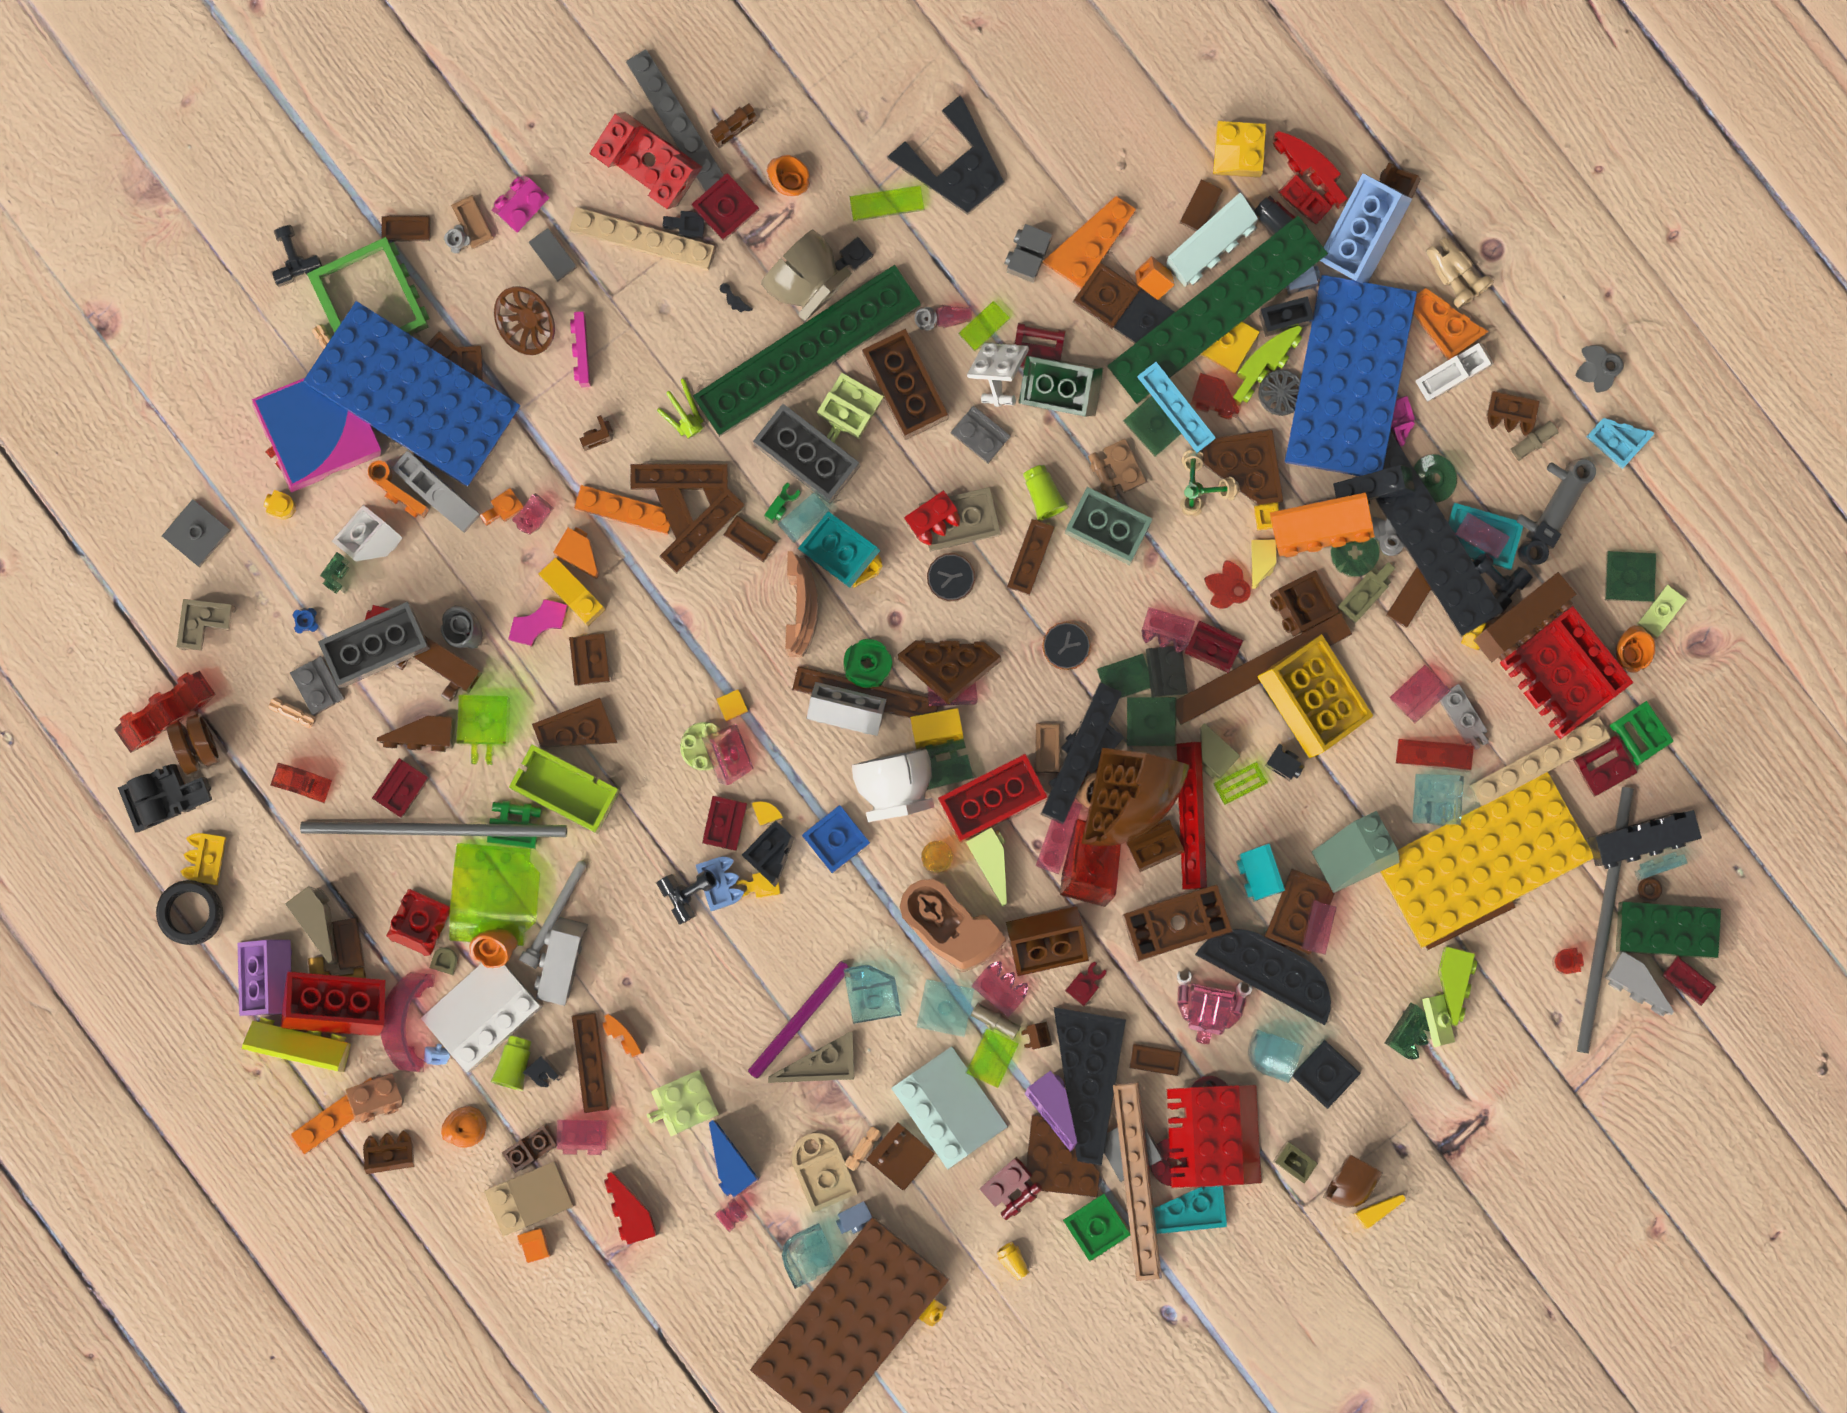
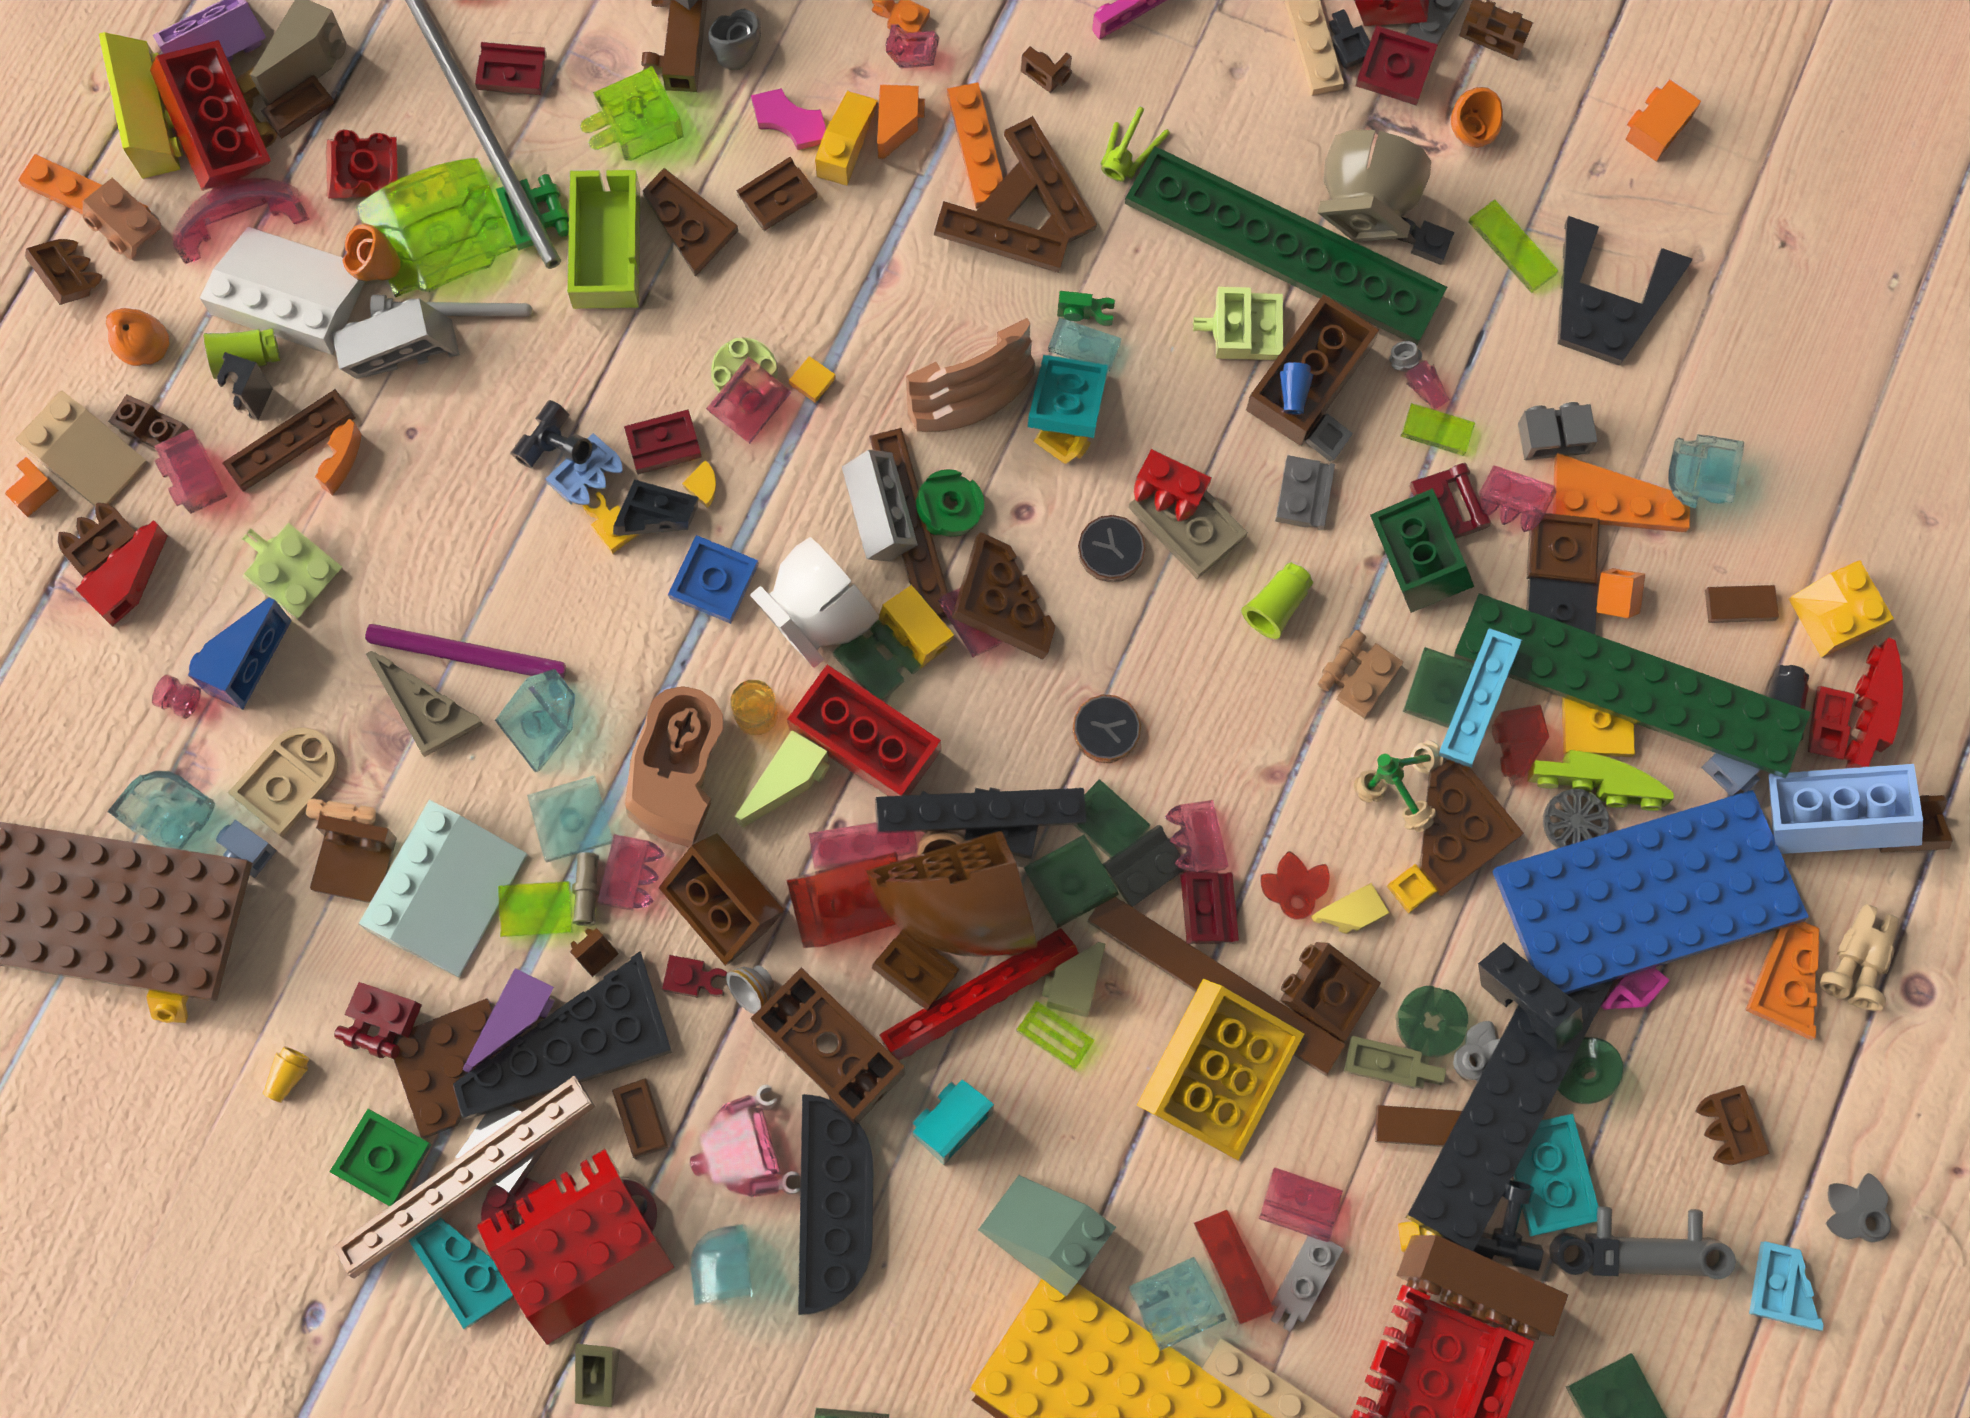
camera: 55 degrees right, 10 degrees down
(428, 732) = (588, 55): reddish brown slope -> none
(436, 1055) = (207, 260): light blue piece -> none
(444, 961) = (330, 219): olive tile -> none
(597, 1217) = (95, 539): none -> reddish brown plate
(734, 301) = (1292, 137): black piece -> none
(750, 539) = (1024, 295): reddish brown tile -> none
(806, 453) = (1161, 302): dark grey brick -> none
(855, 55) = (1662, 120): none -> orange brick
(916, 404) = (1295, 384): none -> blue cone
(954, 399) = (1328, 437): none -> dark grey plate
(997, 364) = (1398, 457): white plate -> none
(1030, 557) = (1191, 627): reddish brown plate -> none
(1047, 748) = (968, 771): medium nougat tile -> none
(1057, 304) = (1515, 496): none -> clear pink plate
(1106, 177) = (1705, 469): none -> clear light blue brick
(1108, 526) = (1284, 696): sand green brick -> none
(1113, 951) = (750, 987): none -> light grey piece
(1212, 241) = (1711, 632): light aqua slope -> none
(1285, 316) = (1677, 771): black brick -> none
(1285, 763) = (1111, 1076): black brick -> none
(1293, 908) = (930, 1202): reddish brown plate -> none
(1318, 927) = (921, 1234): clear pink panel -> none
(1322, 525) = (1444, 955): orange slope -> none
(1326, 1074) = (735, 1353): black tile -> none
(1454, 372) = (1738, 1024): white slope -> none
(1482, 535) = (1553, 1171): clear pink plate -> none
(1534, 440) = (1714, 1175): dark tan pin -> none

